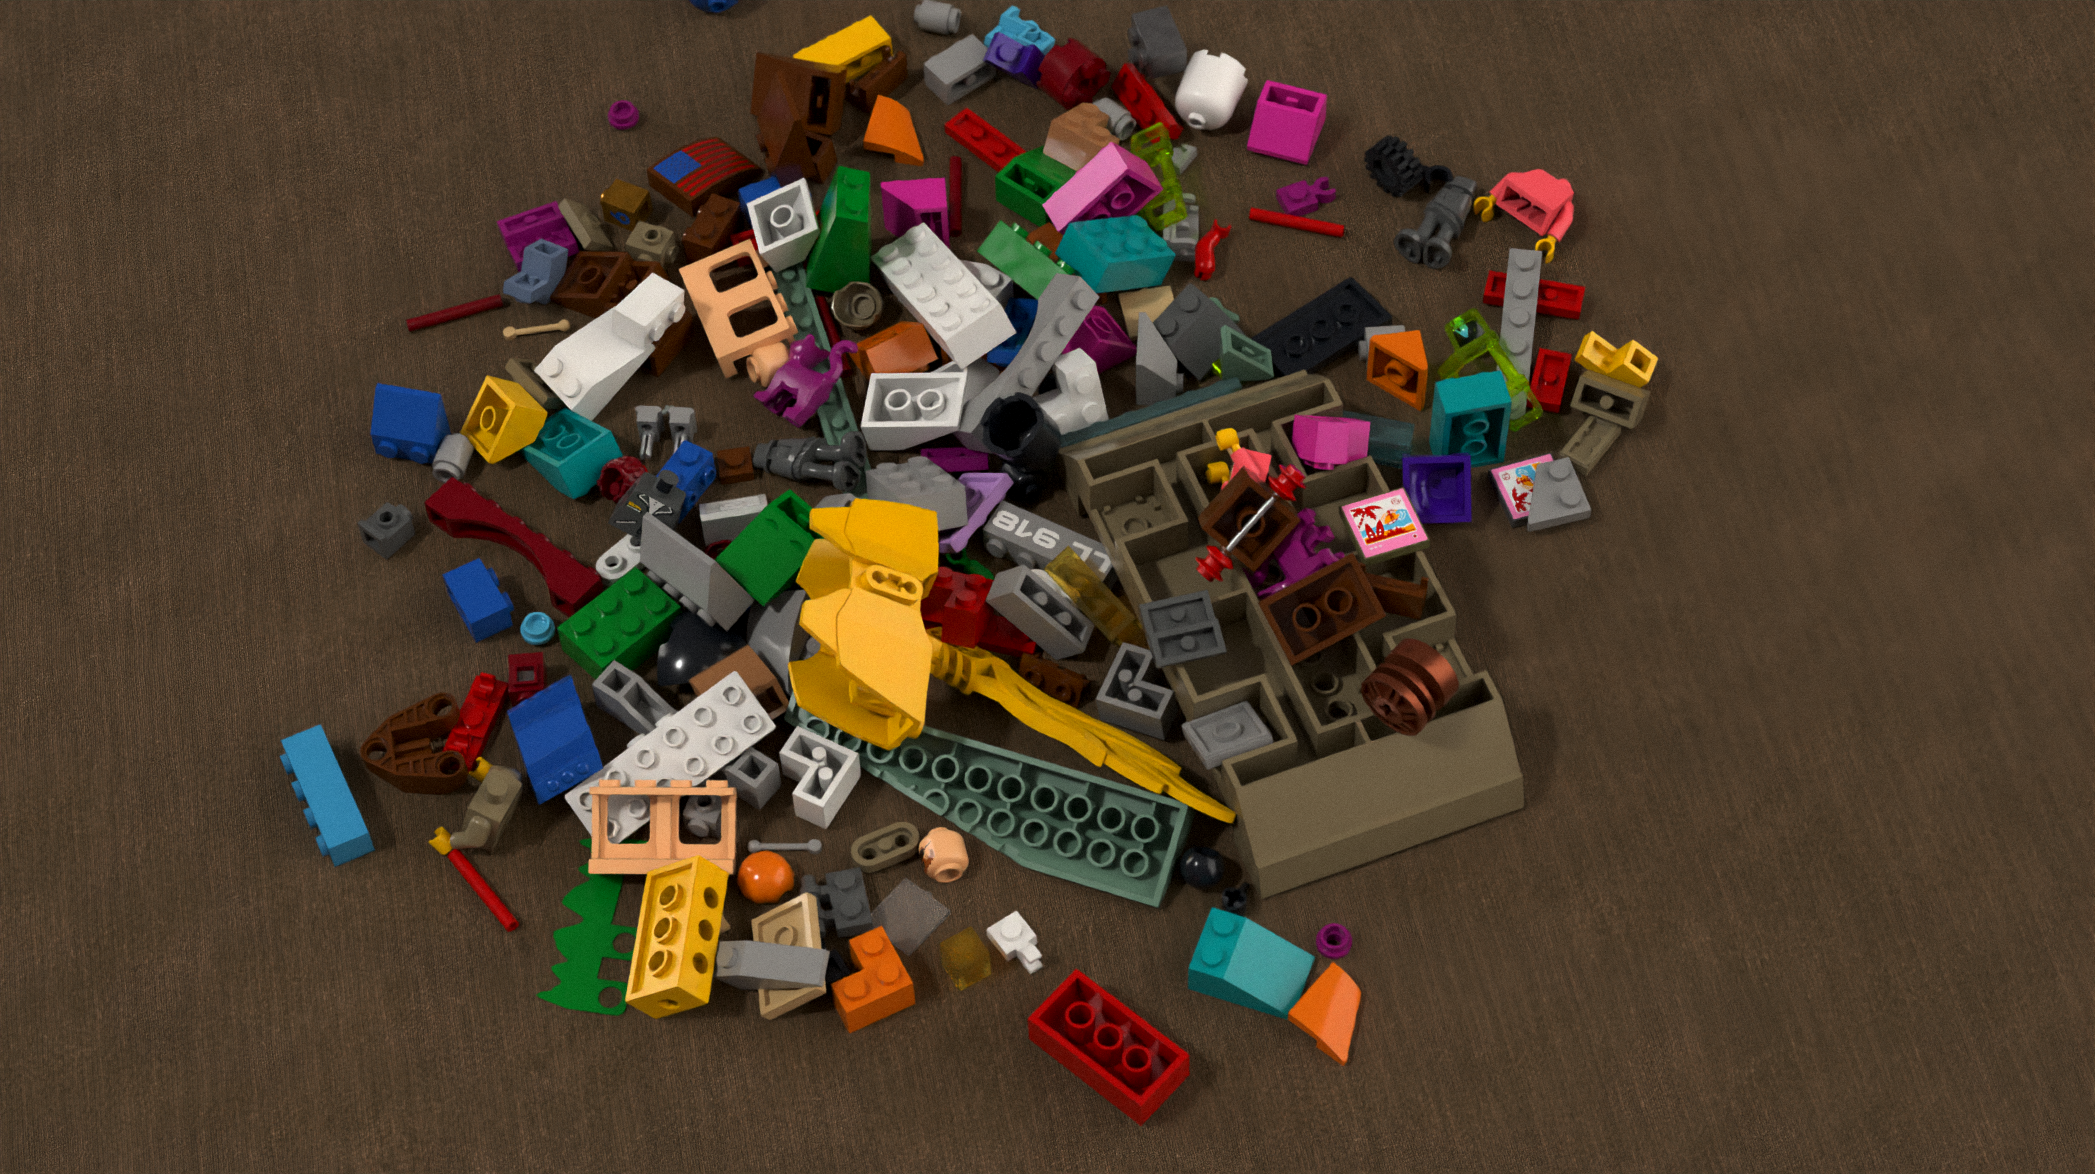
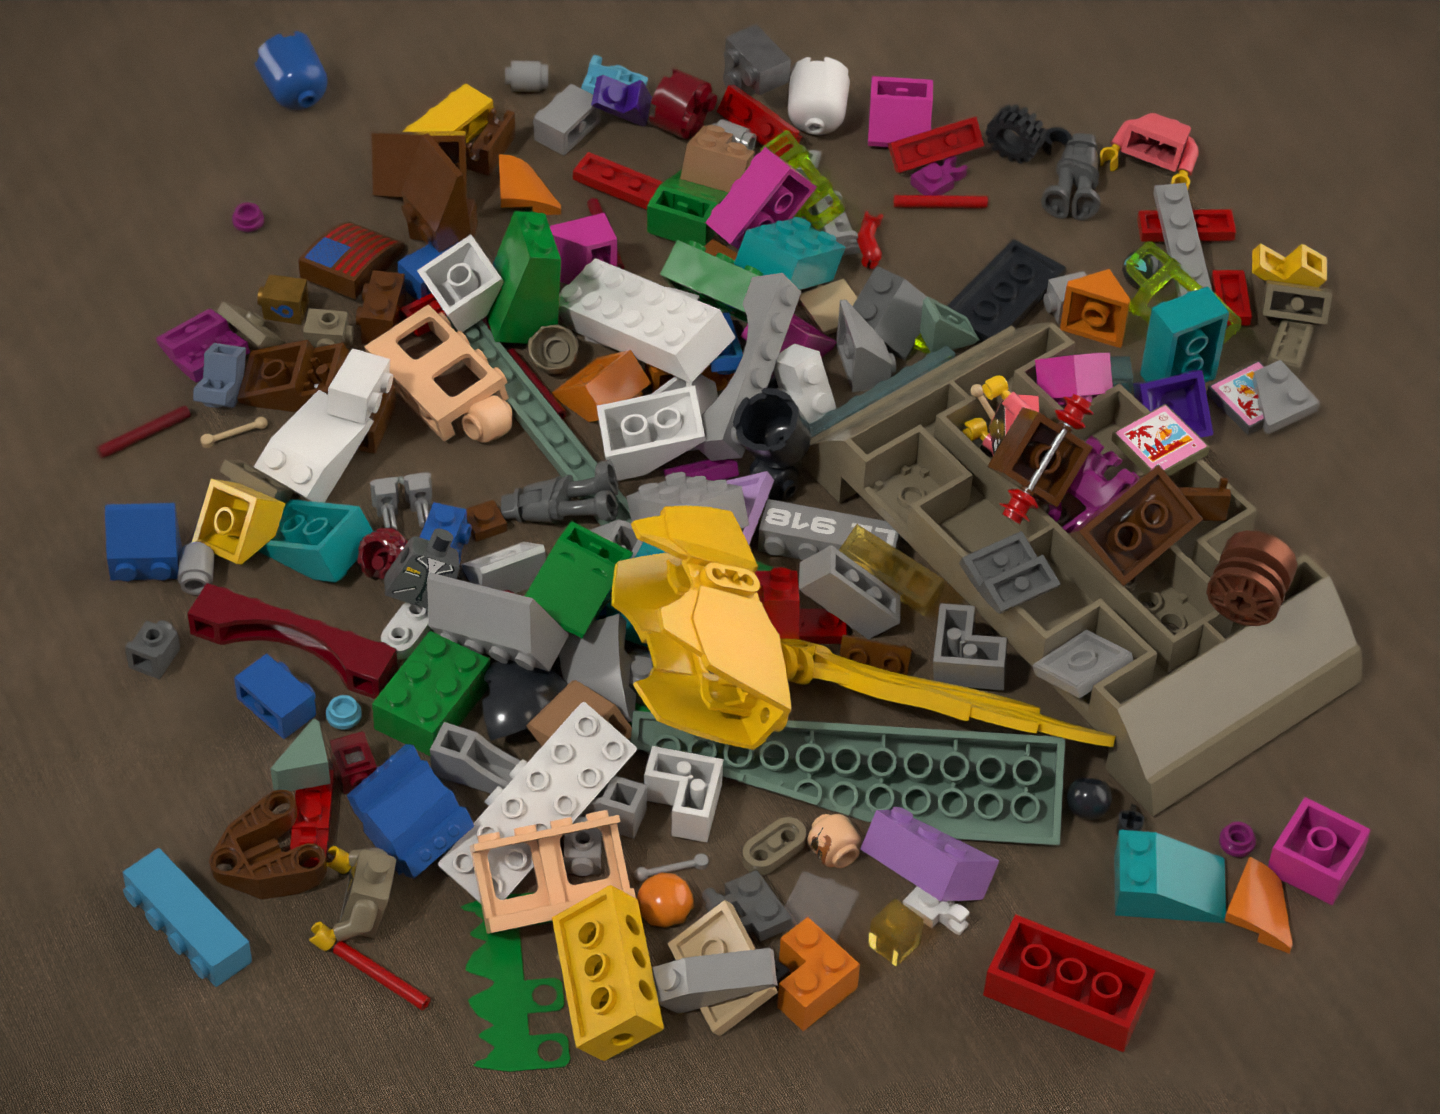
camera: 20 degrees left, 5 degrees down
(474, 670) = (303, 762): none -> sand green slope
(800, 382) = (528, 429): magenta animal -> none
(1022, 893) = (928, 856): none -> medium lavender wedge
(1310, 162) = (935, 144): none -> red plate
(1403, 971) = (1318, 850): none -> dark pink brick

